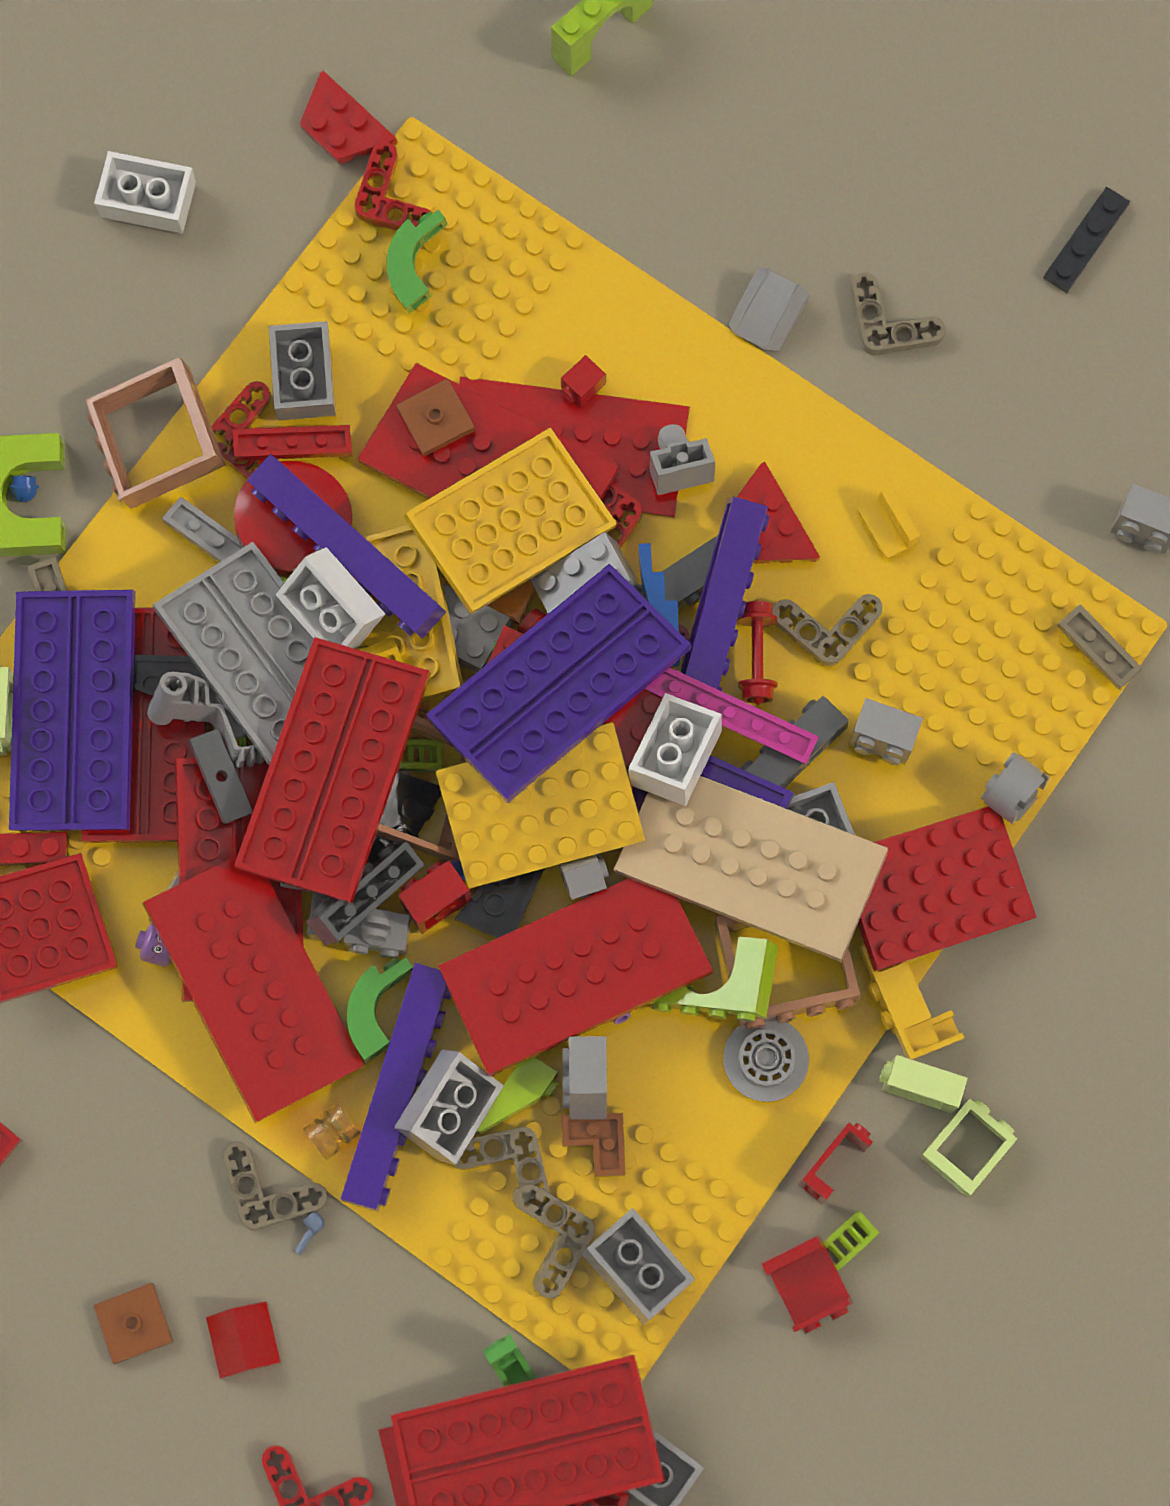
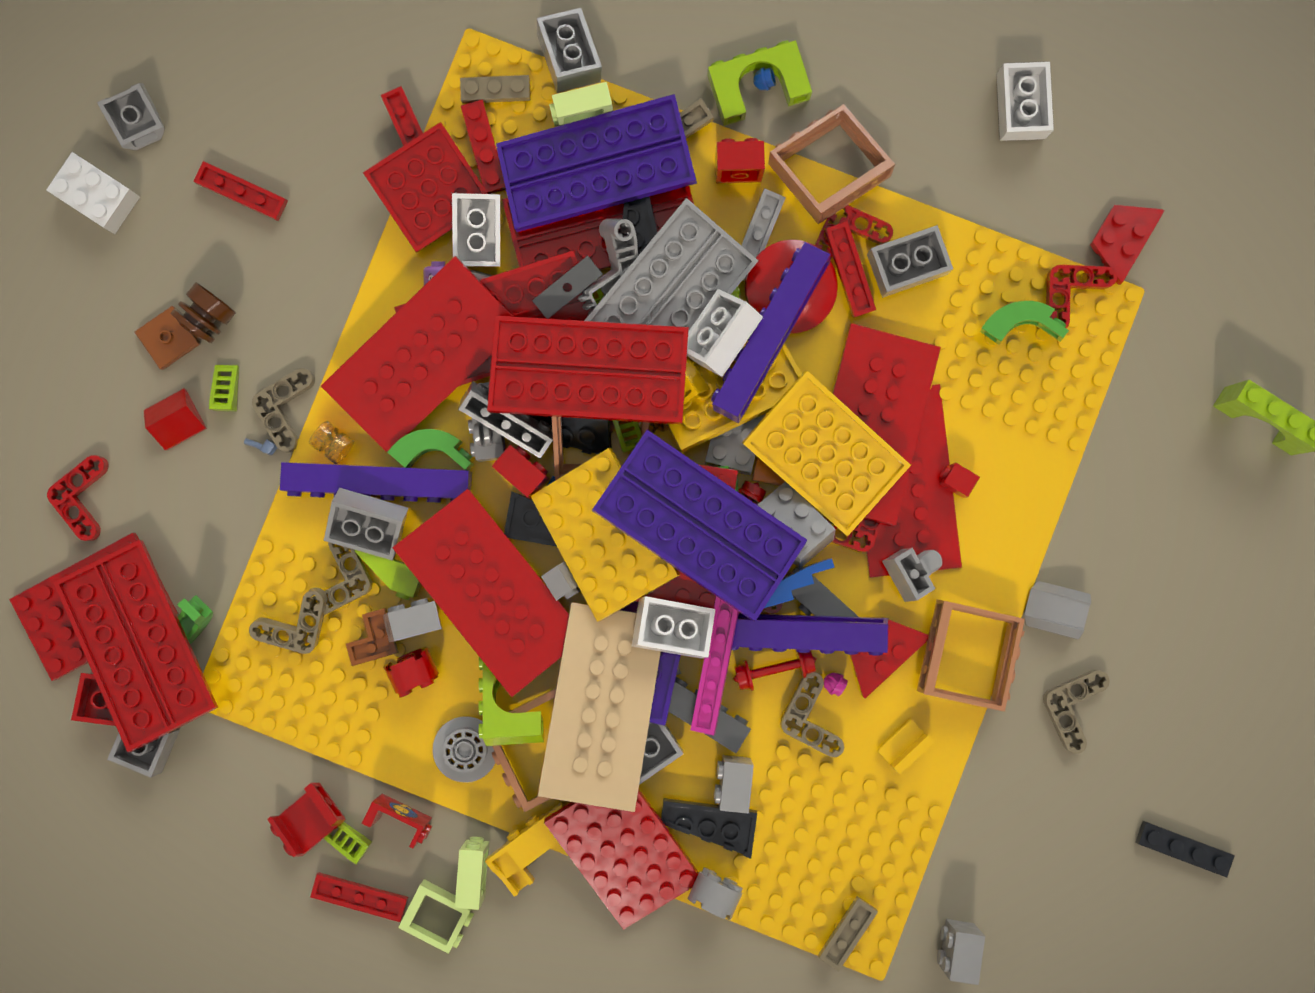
camera: 80 degrees right, 10 degrees up
(112, 877) = (476, 228): none -> white brick
(117, 1258) = (203, 313): none -> reddish brown wheel
(121, 537) = (739, 161): none -> red brick
(244, 1270) = (215, 395): none -> lime slope
(435, 417) = (898, 374): dark orange plate -> none
(638, 1266) = (283, 693): light grey brick -> none
(650, 1096) = (411, 671): none -> red brick
(776, 456) = (935, 646): none -> nougat window
(793, 586) = (835, 683): none -> dark pink plate
(922, 1242) = (359, 897): none -> red plate
(931, 771) = (728, 829): none -> black wing

